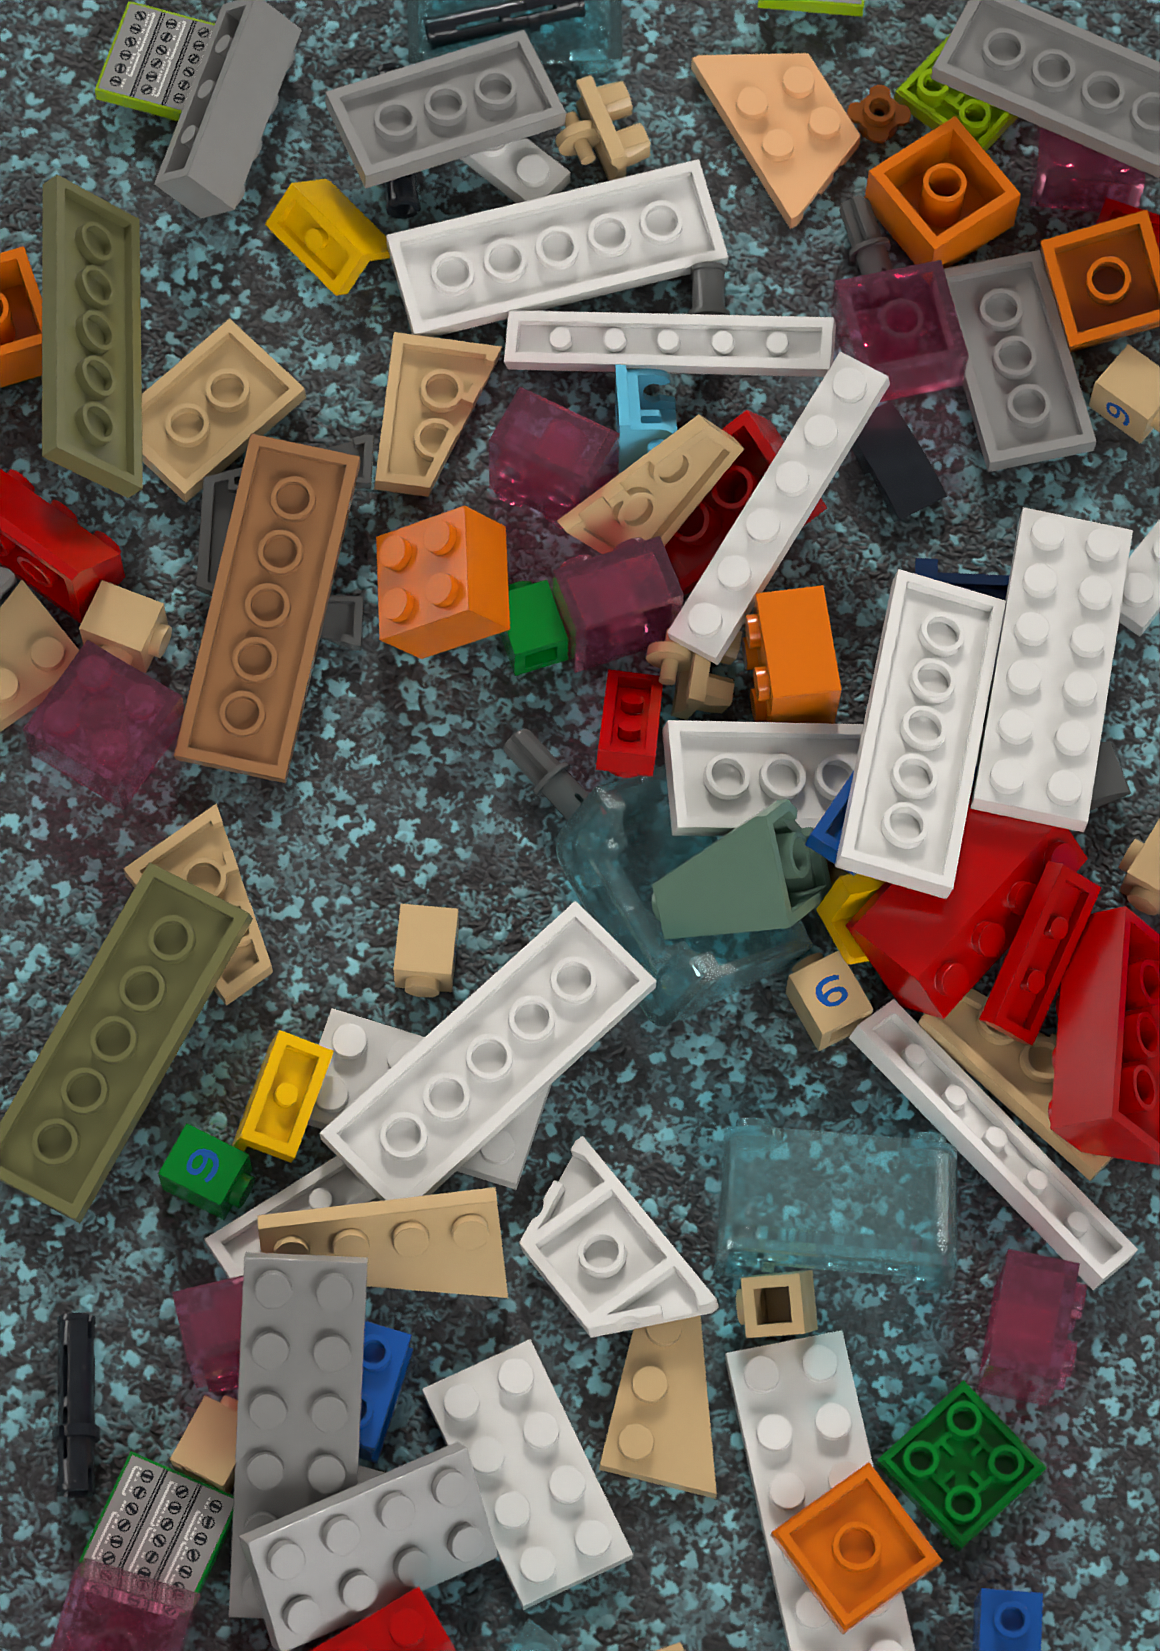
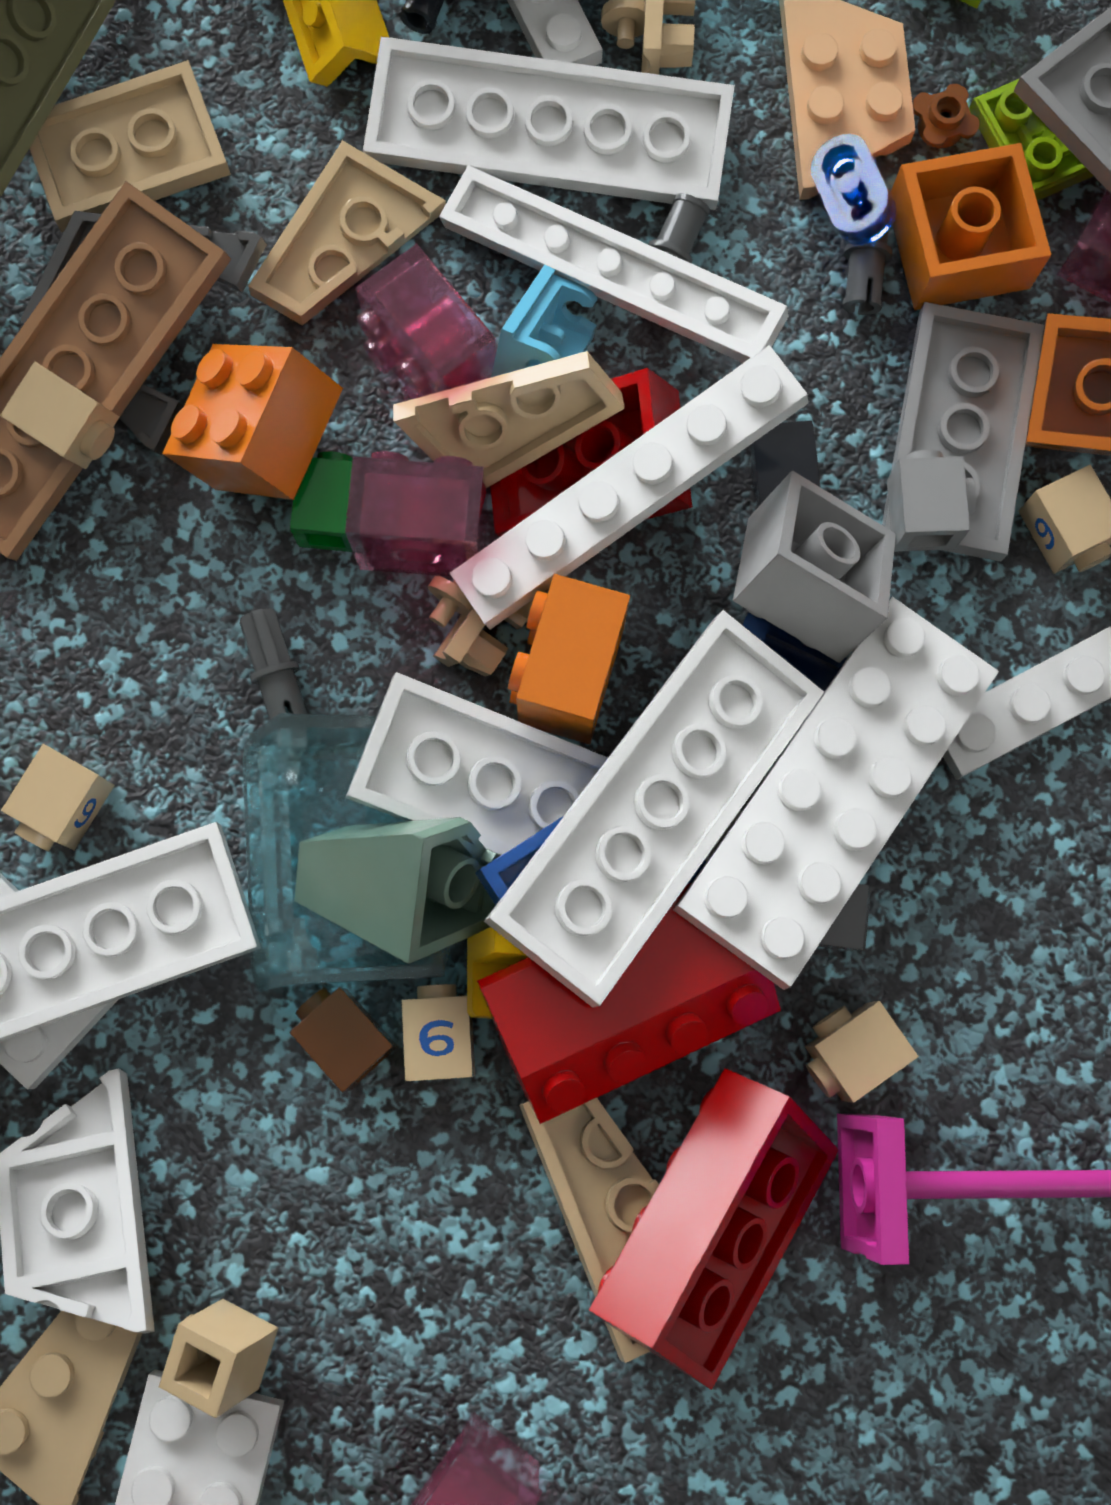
camera: 25 degrees right, 10 degrees up
(293, 640) = (61, 416): none -> tan brick
(629, 724) = (365, 655): red plate -> none
(751, 1032) = (341, 1037): none -> reddish brown brick
(838, 1203) = (330, 1280): clear light blue windscreen -> none
(839, 207) = (853, 189): none -> clear blue plate
(902, 327) = (858, 349): clear pink brick -> none
(952, 509) = (816, 567): none -> light grey brick
(993, 1143) = (536, 1279): white plate -> none
(1016, 424) = (930, 501): none -> light grey brick
(1040, 953) = (674, 1101): red plate -> none

